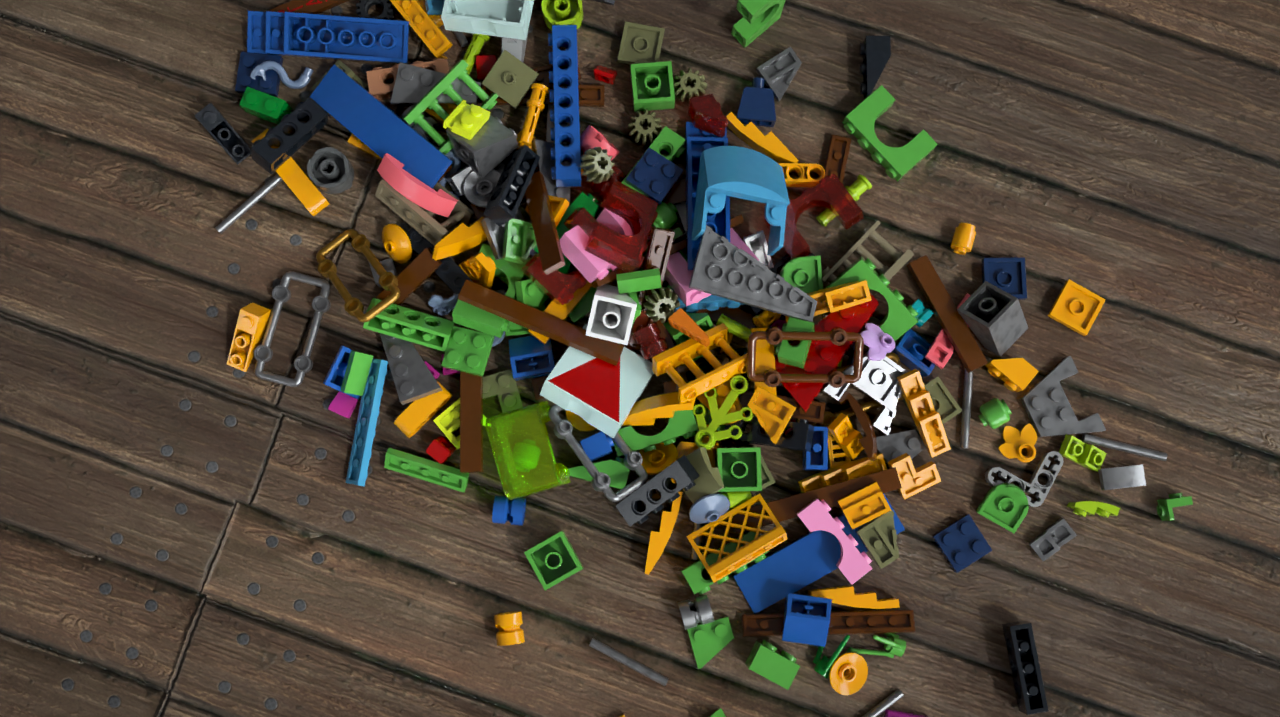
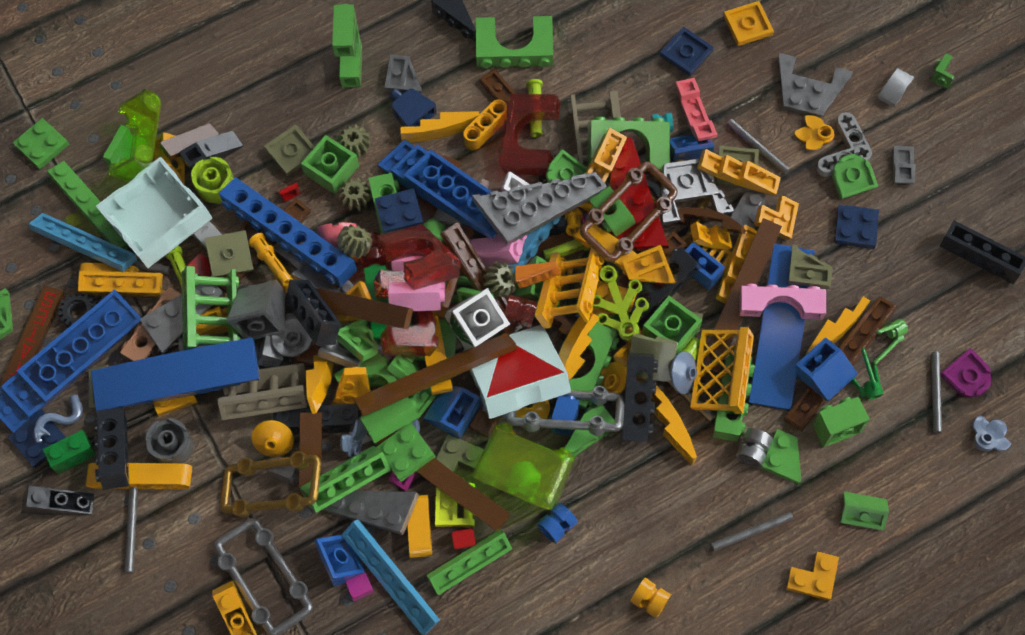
camera: 45 degrees left, 15 degrees down
(356, 373) = (345, 551): bright green tile -> none
(414, 189) = (246, 382): coral slope -> none
(466, 119) = (233, 301): neon yellow plate -> none
(553, 560) = (625, 519): bright green brick -> none
(638, 281) = (469, 276): bright green tile -> none
(707, 115) = (387, 144): clear red slope -> none
(742, 175) = (448, 152): dark azure windscreen -> none
(853, 678) = (891, 376): light orange dish -> none
(864, 505) = (773, 261): light orange plate -> none
(877, 341) = (664, 157): lavender plate -> none
(947, 314) = (679, 105): reddish brown tile -> none
(963, 238) = (634, 54): light orange brick -> none
(994, 317) = (709, 75): flat silver slope -> none
(994, 413) = (779, 130): bright green head -> none
(1014, 372) = (759, 96): light orange slope -> none
(1082, 453) = (857, 99): lime slope -> none
(1085, 508) = (900, 123): lime slope -> none
(1124, 447) = (875, 70): flat silver bar -> none

